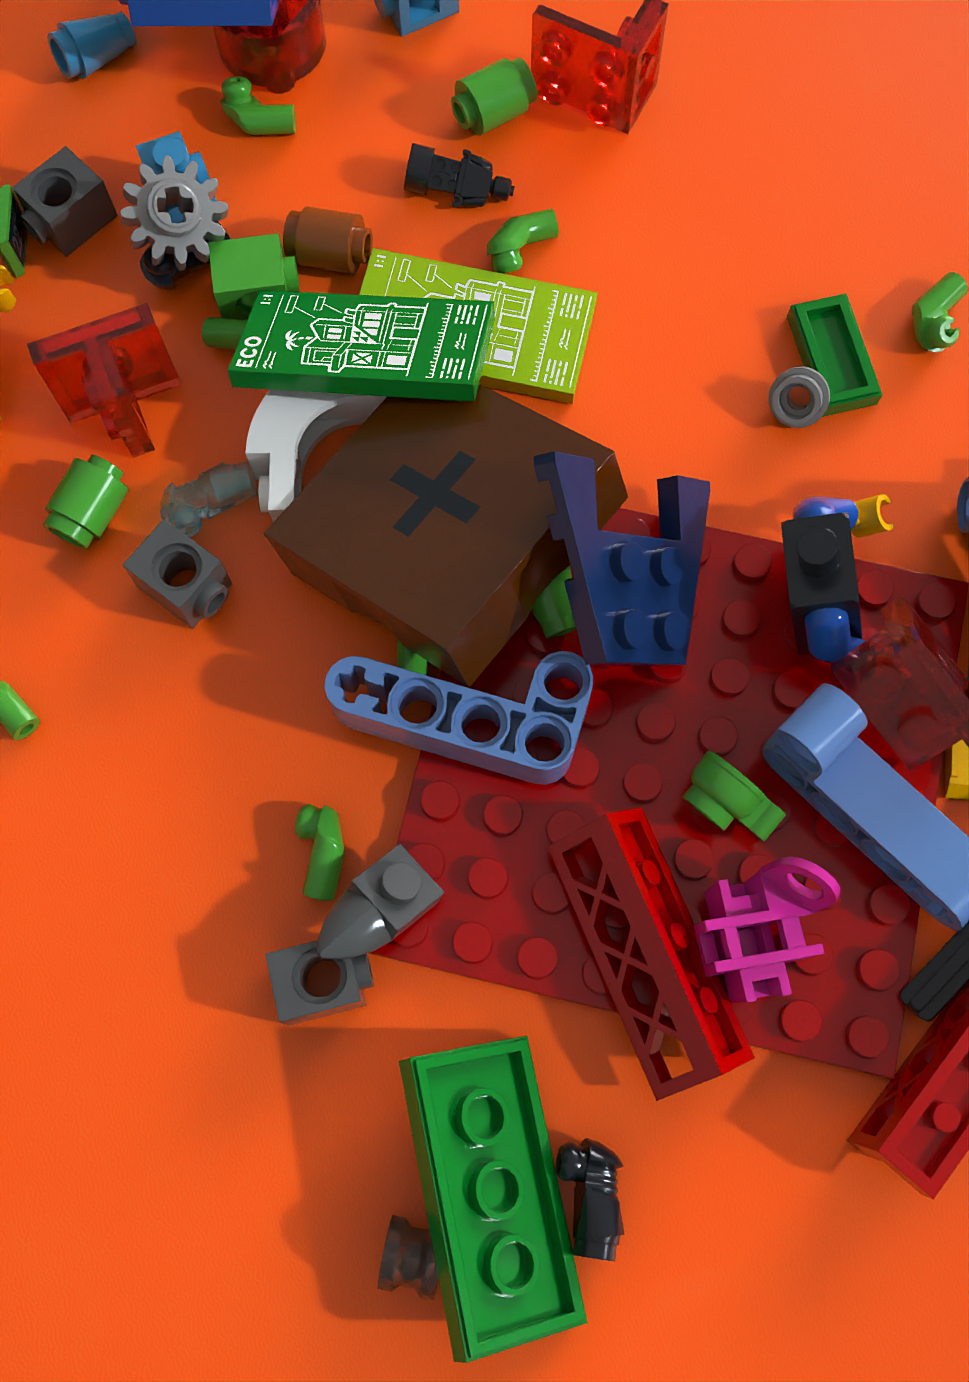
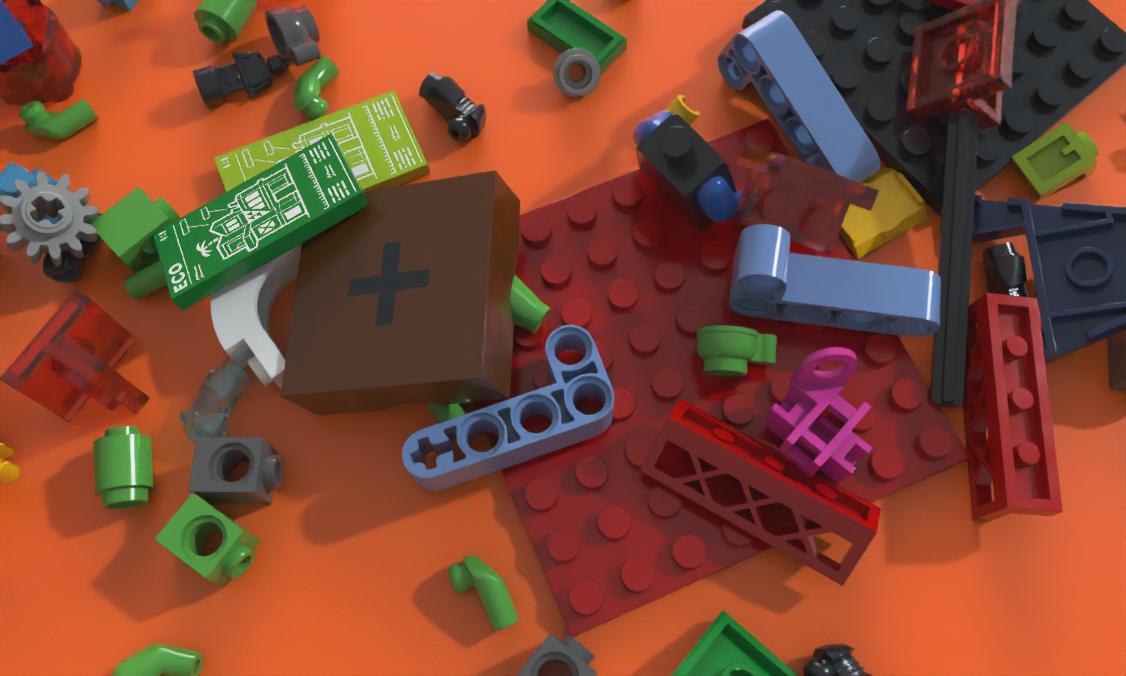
camera: 35 degrees left, 5 degrees down
(101, 602) = (189, 531): none -> bright green brick
(327, 239) = (176, 171): dark orange brick -> none
(378, 906) = (558, 598): dark grey plate -> none
(540, 166) = (294, 33): none -> dark grey piece
(628, 590) = (567, 252): dark blue wing -> none
(645, 341) = (449, 100): none -> black arm

